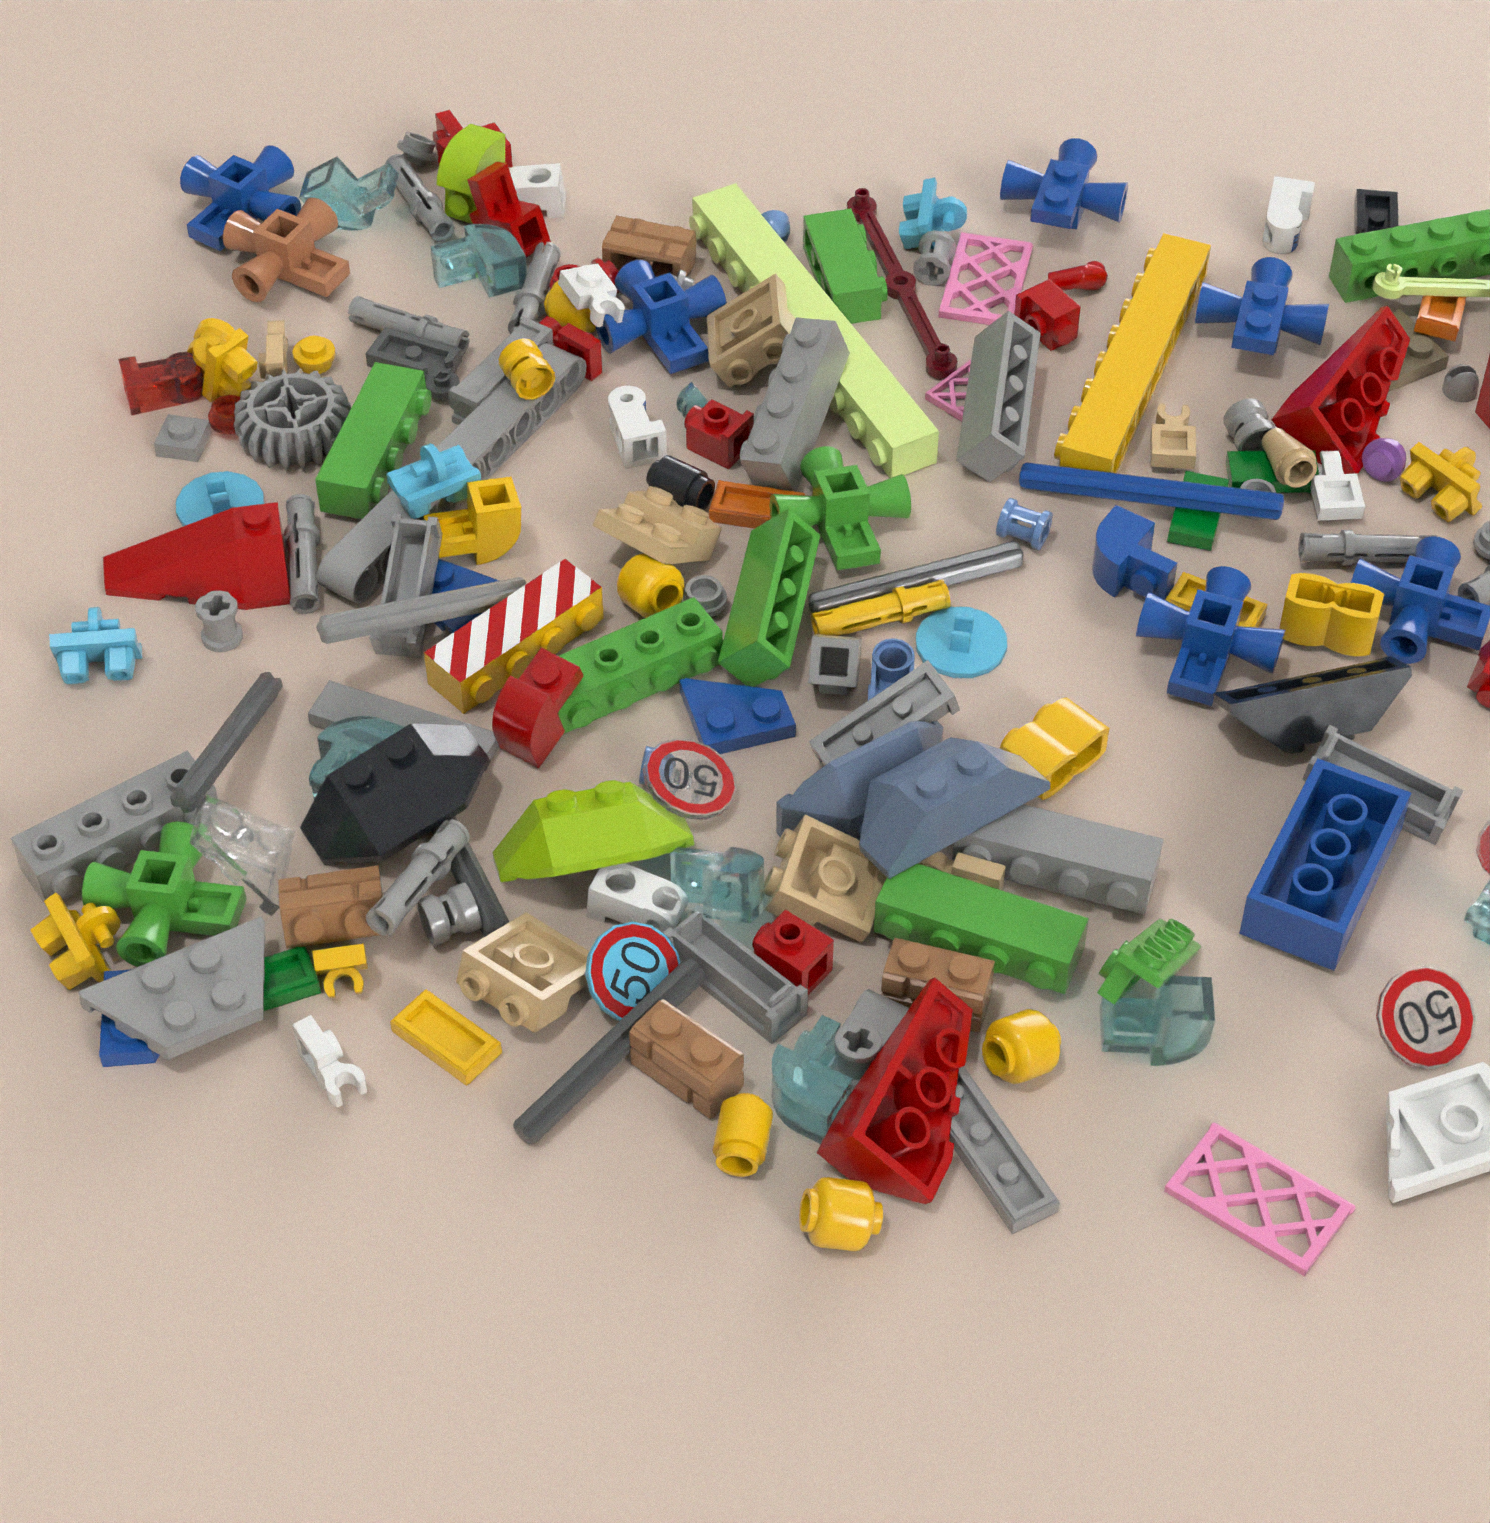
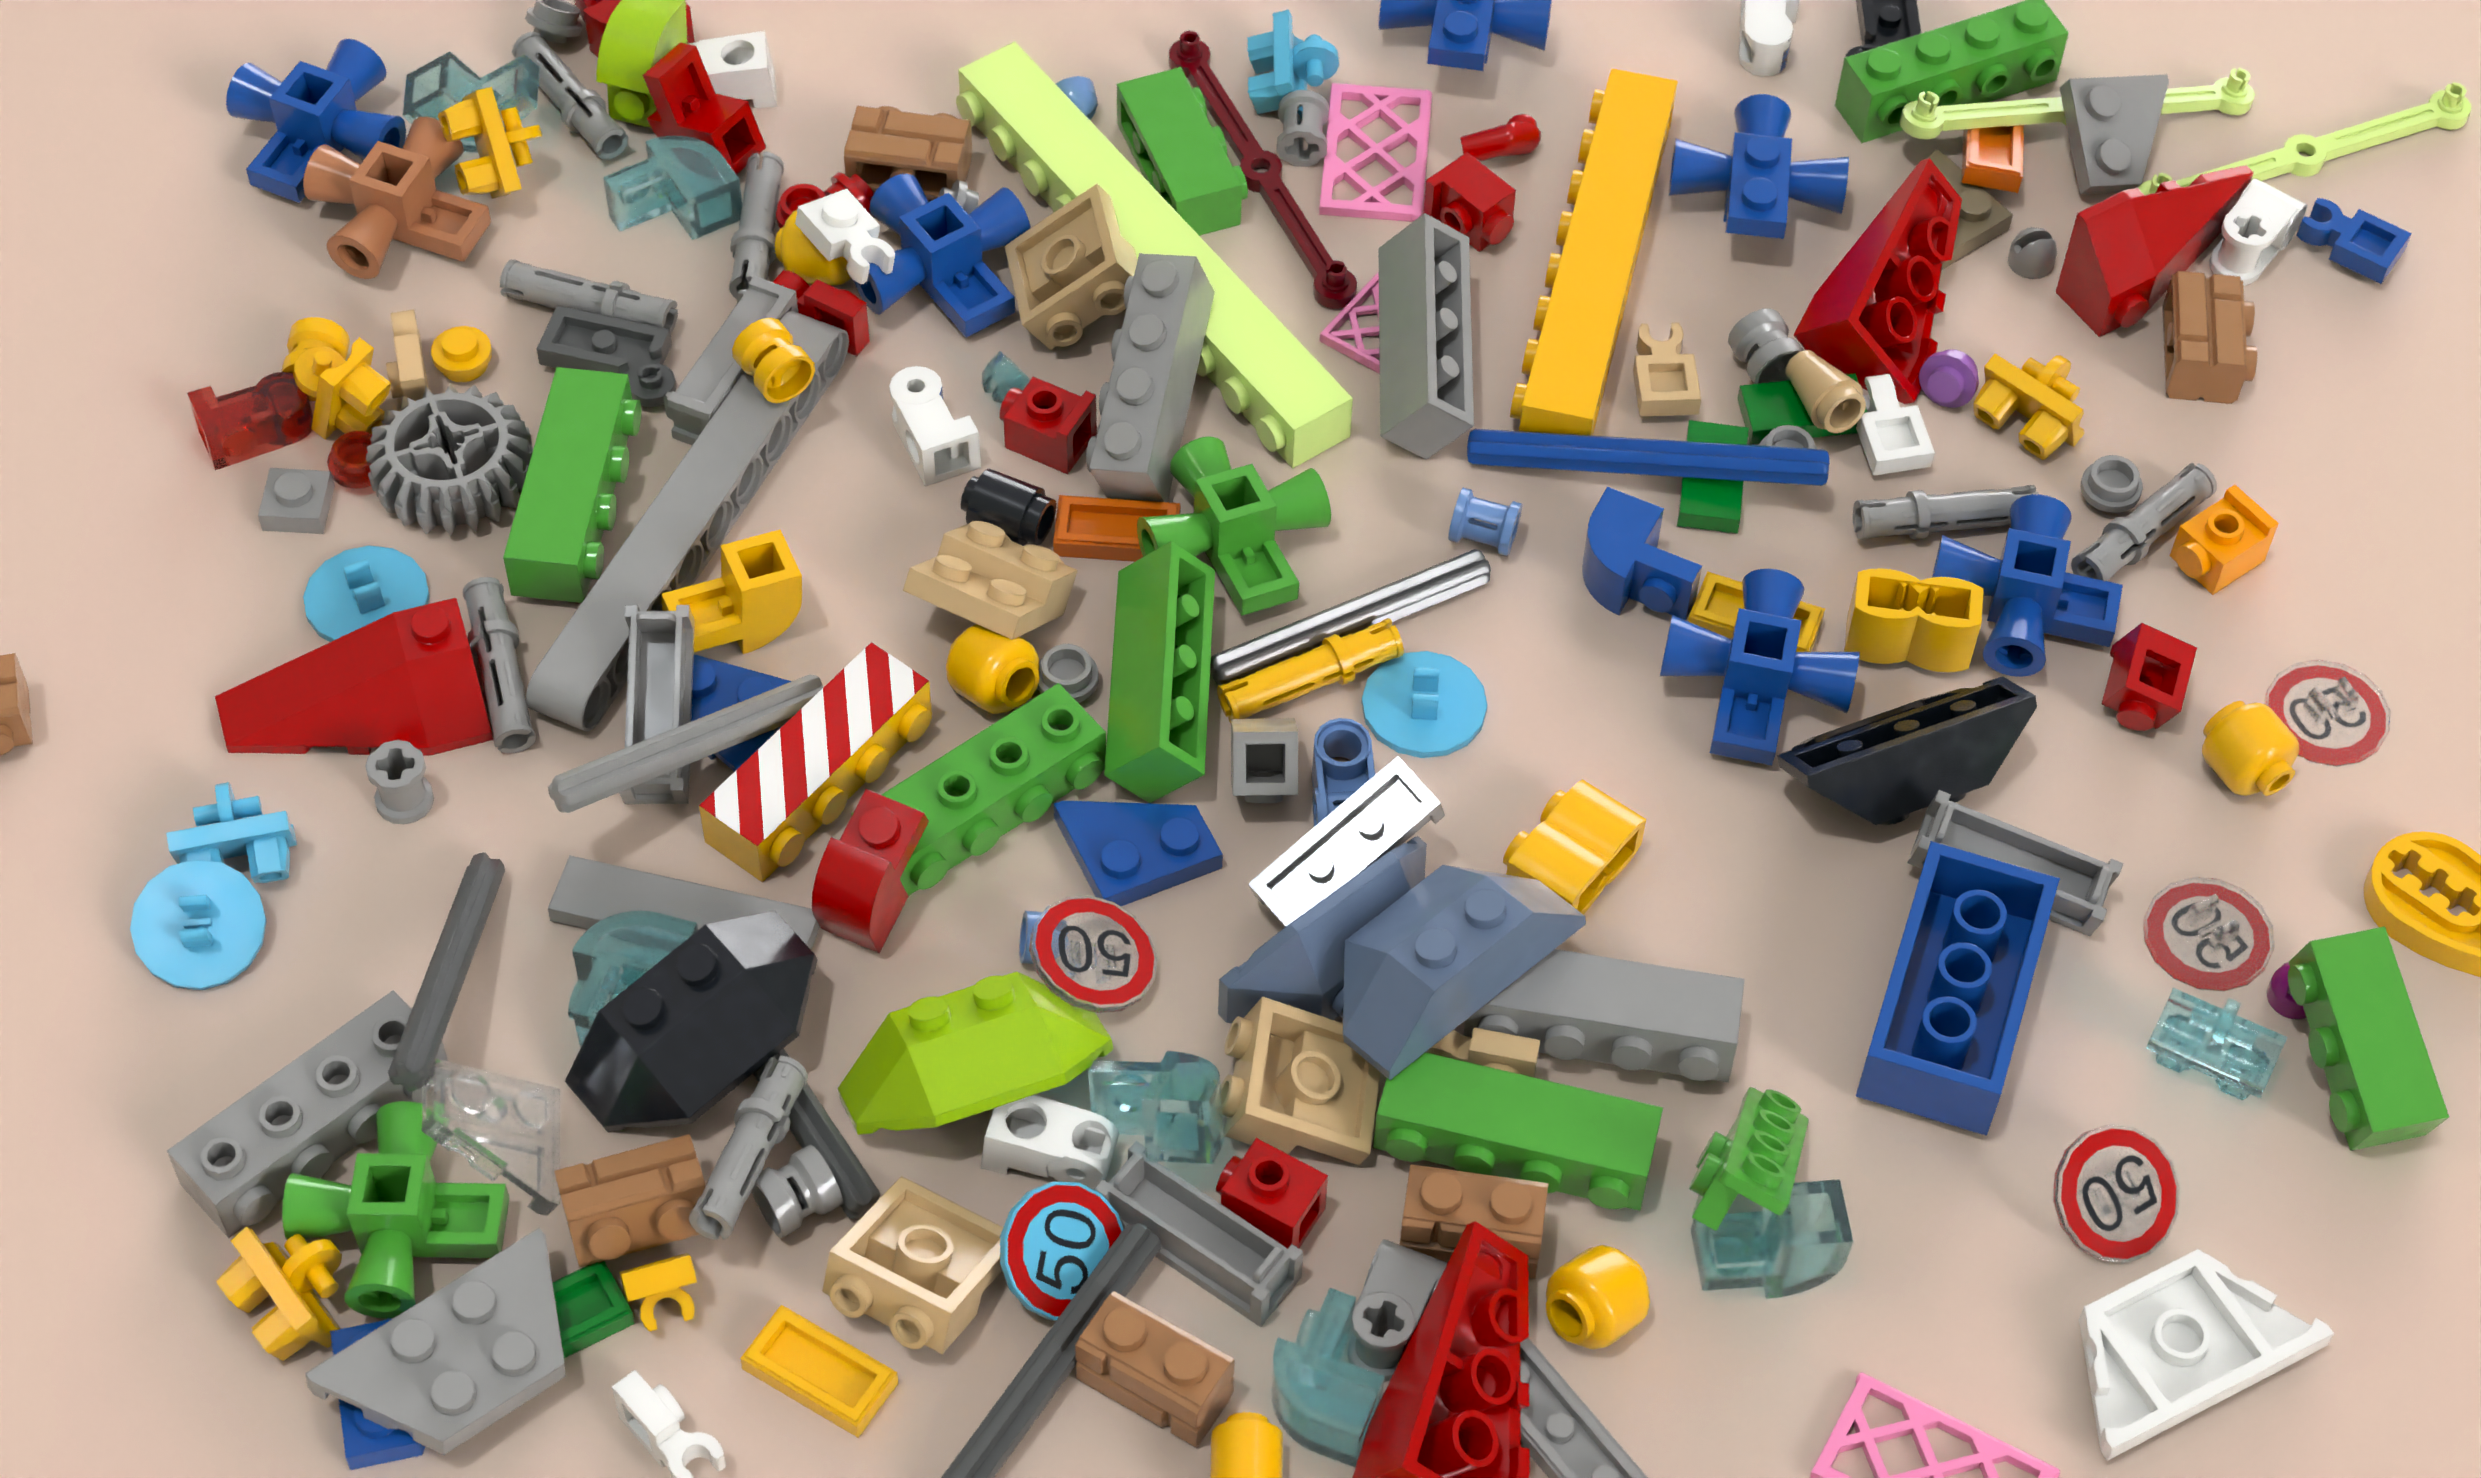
camera: 10 degrees left, 5 degrees up
(62, 699) = (198, 924): none -> medium azure piece
(356, 237) = (495, 168): none -> yellow hips
(433, 478) = (671, 544): medium azure hips -> none

